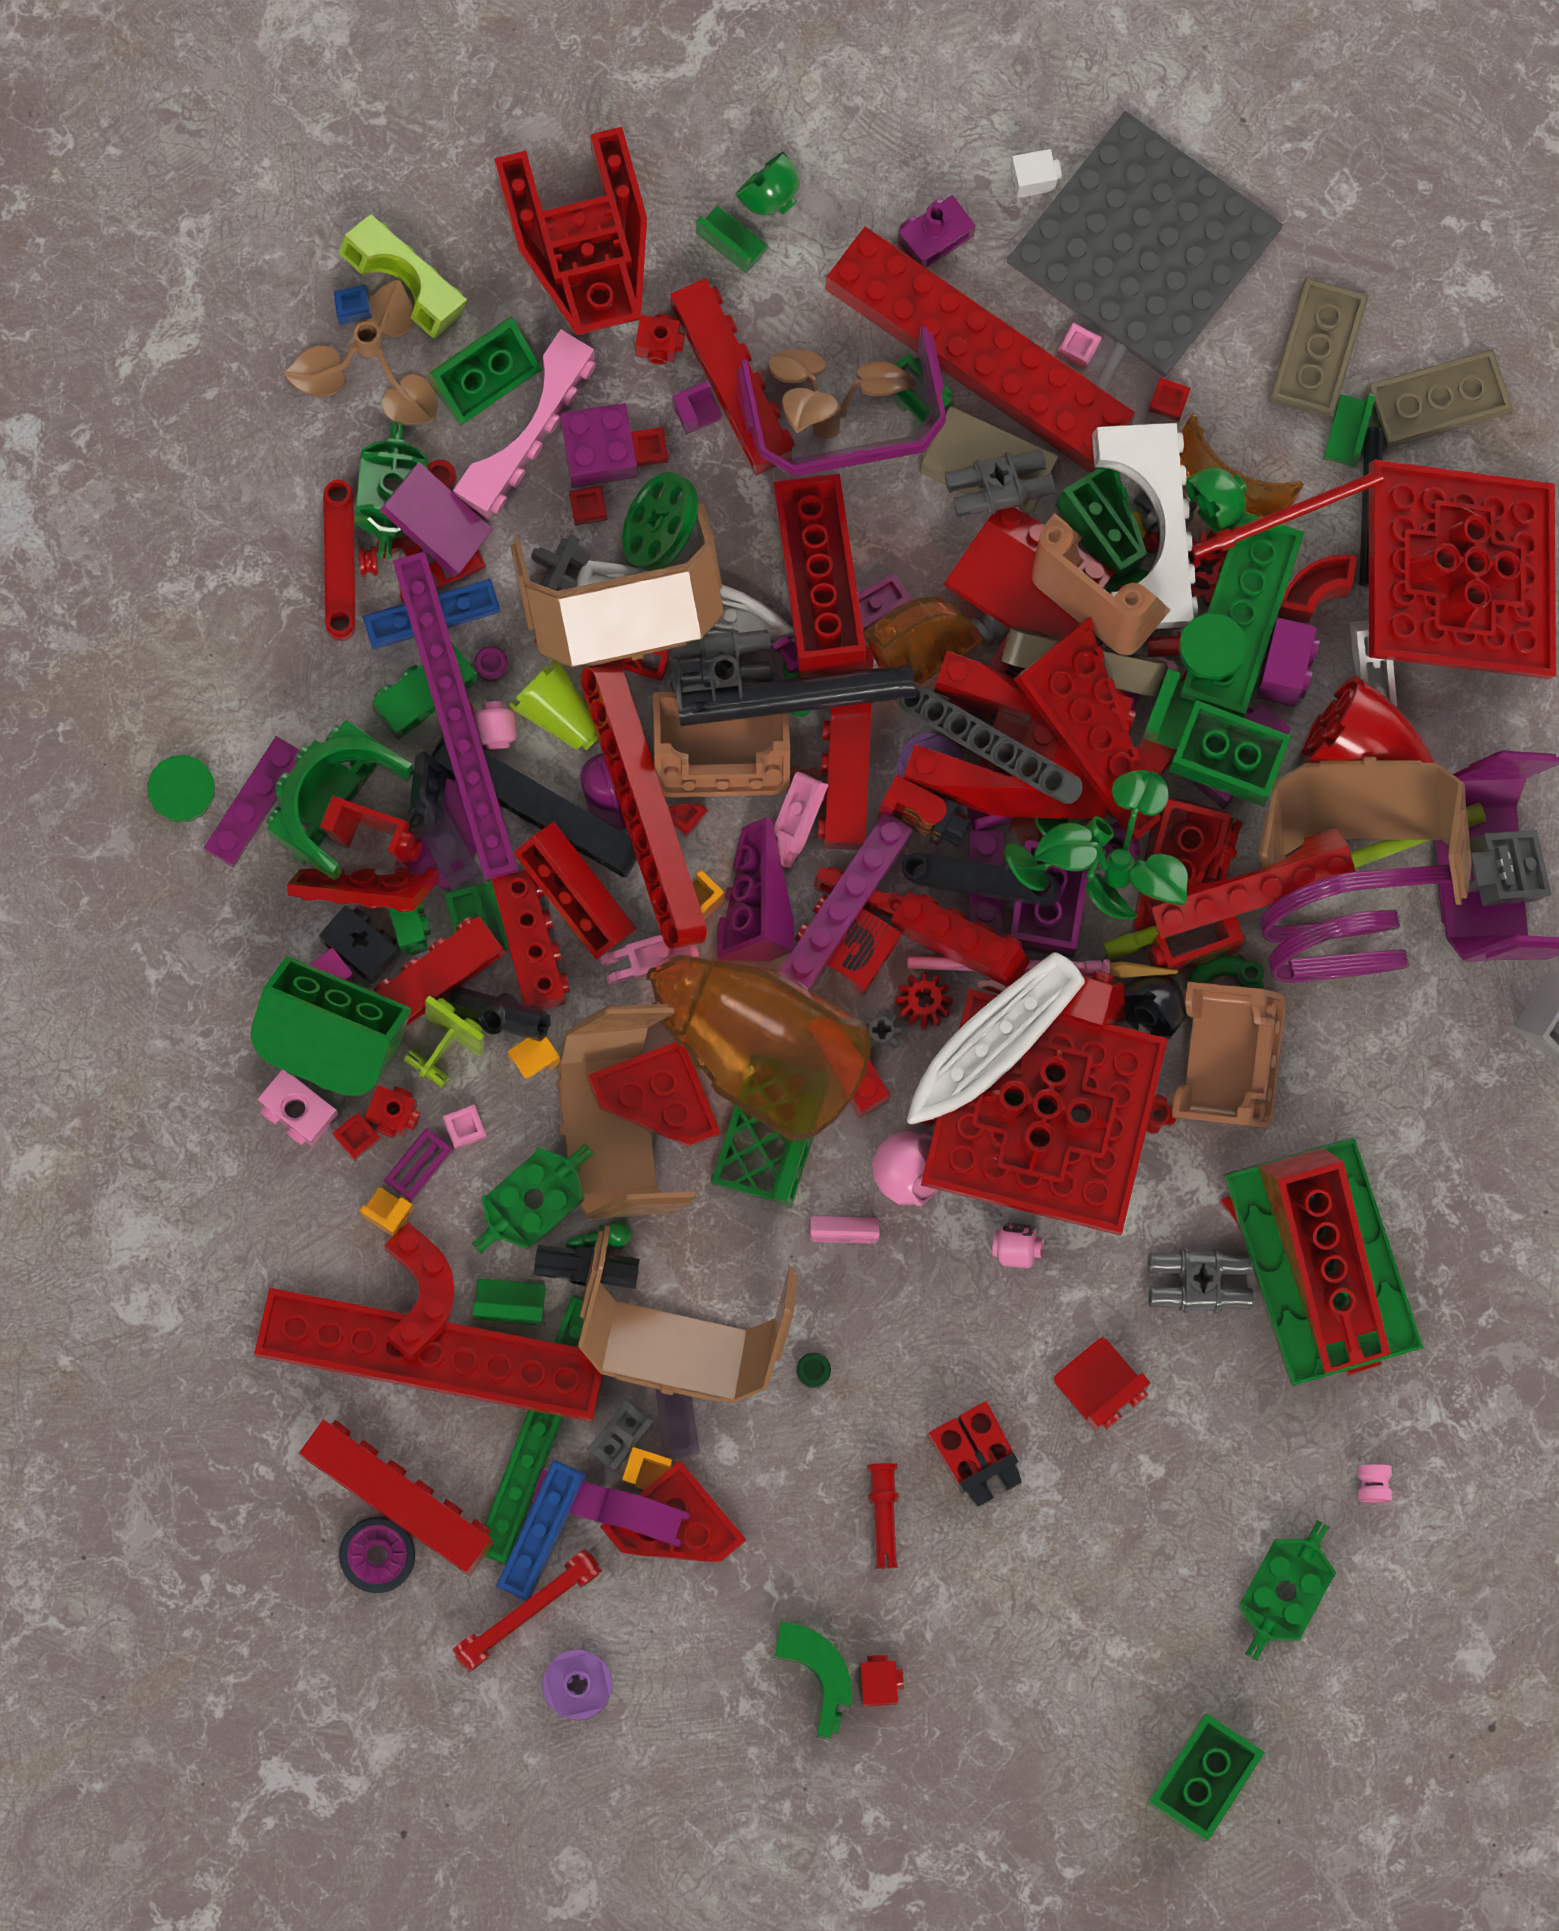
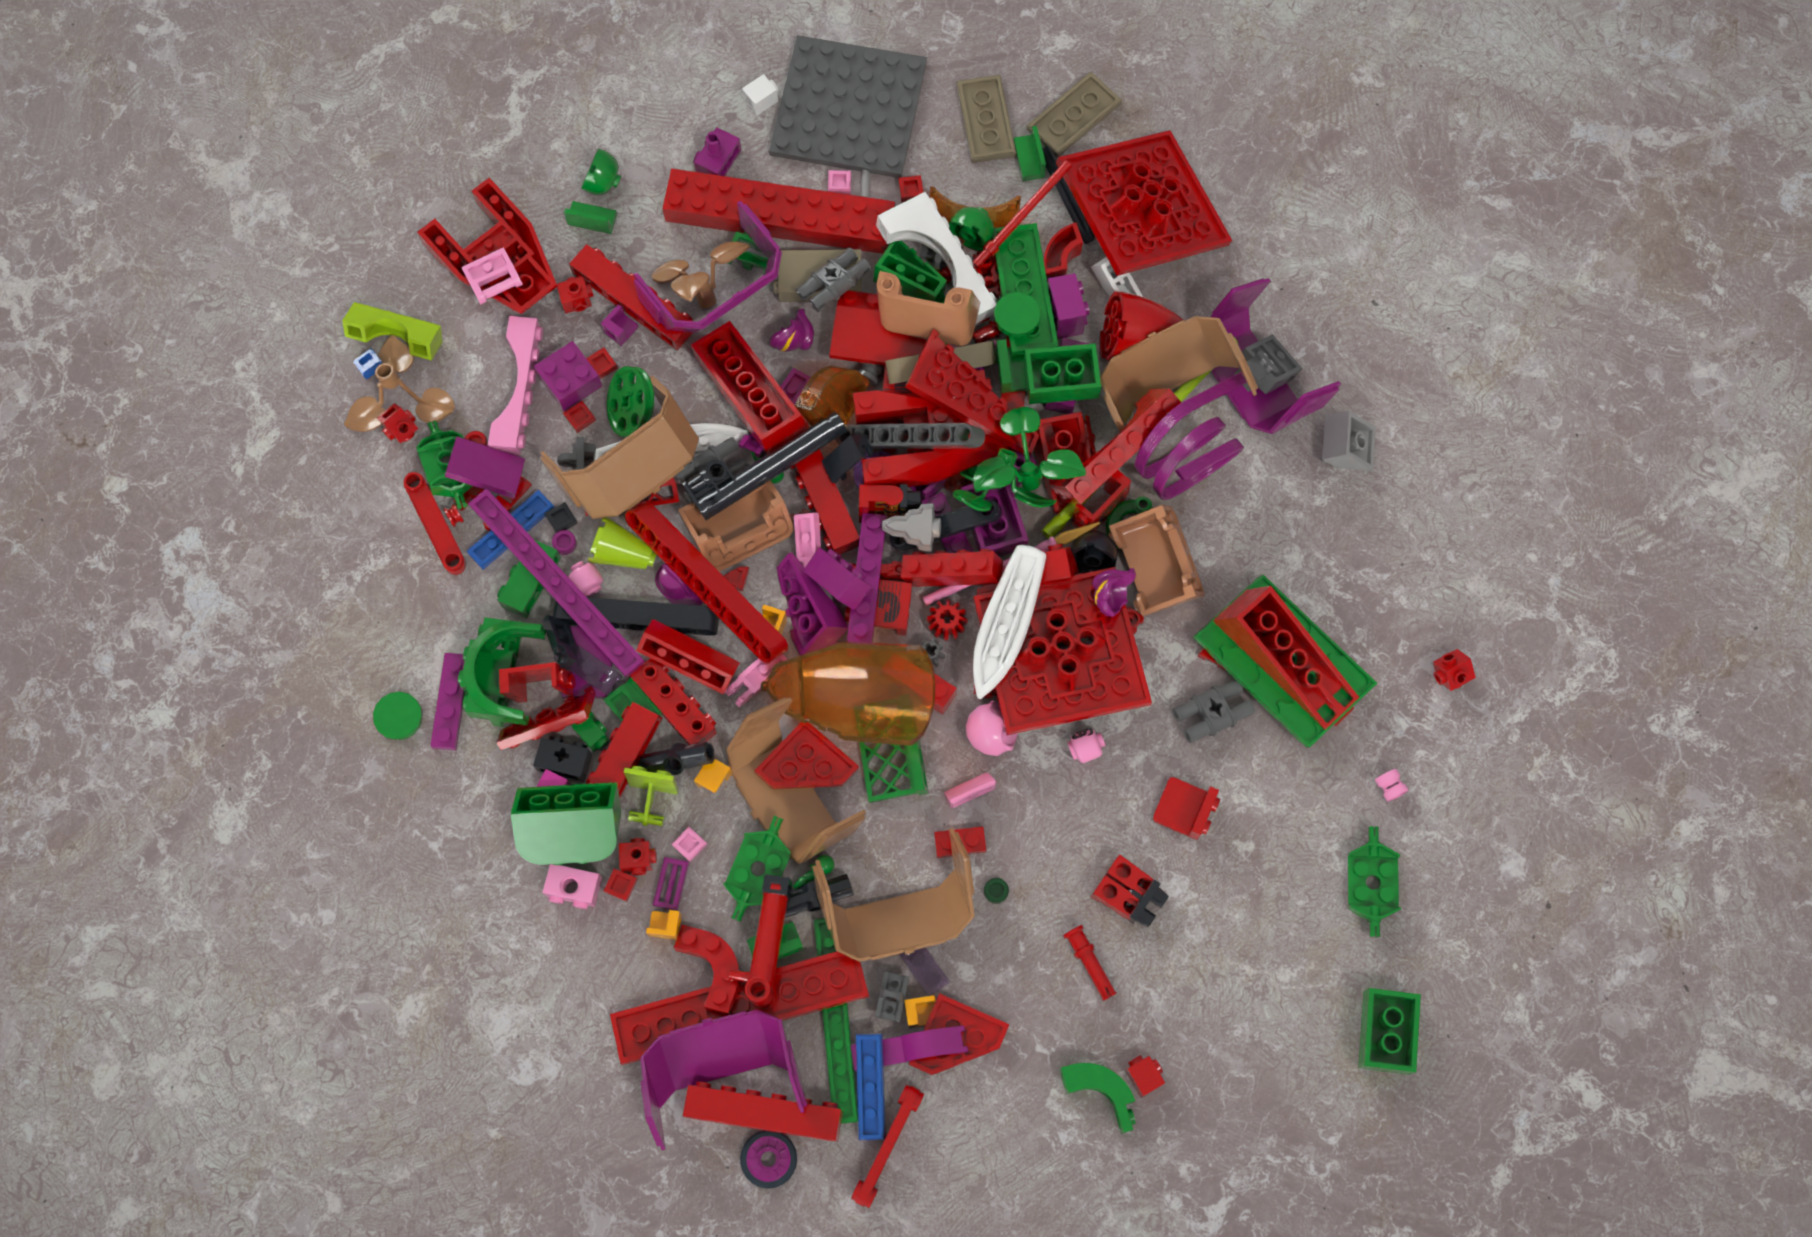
camera: 20 degrees left, 5 degrees down
(353, 406) = (398, 423): none -> red brick
(369, 1395) = (710, 1053): none -> magenta piece
(484, 371) = (472, 364): green slope -> none
(501, 629) = (561, 518): none -> black tile
(540, 1241) = (776, 895): none -> red piece
(562, 257) = (488, 269): none -> bright pink plate
(594, 1696) = (961, 1180): medium lavender plate -> none
(809, 882) = (837, 577): none -> magenta brick
(812, 1291) = (972, 838): none -> red plate
(899, 730) = (846, 456): none -> black hinge
(916, 531) = (796, 335): none -> magenta hair
(941, 864) = (916, 526): none -> light grey rock
(1145, 1067) = (1112, 590): none -> magenta hair
(1531, 1378) = (1453, 670): none -> red brick

